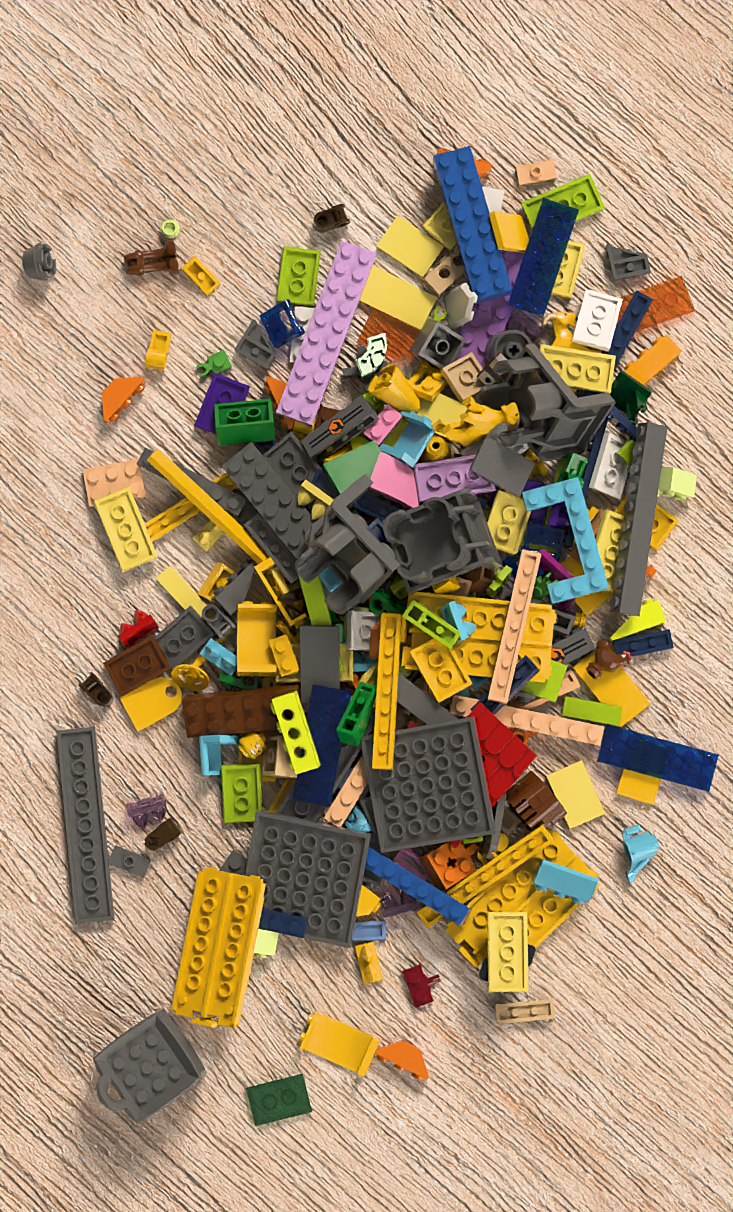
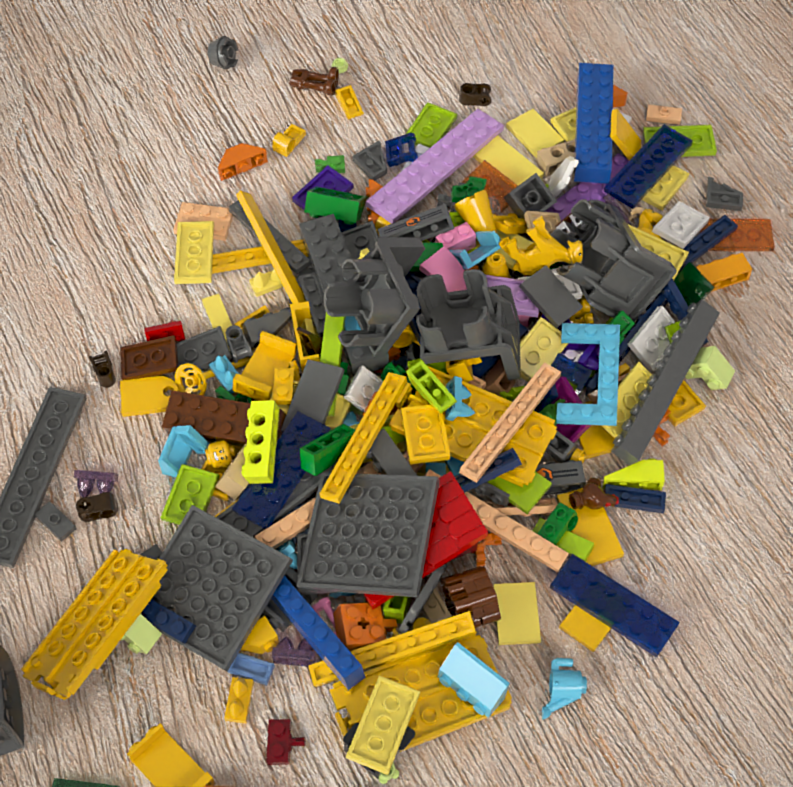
camera: 25 degrees right, 25 degrees down
(584, 700) = (558, 522): none -> green plate

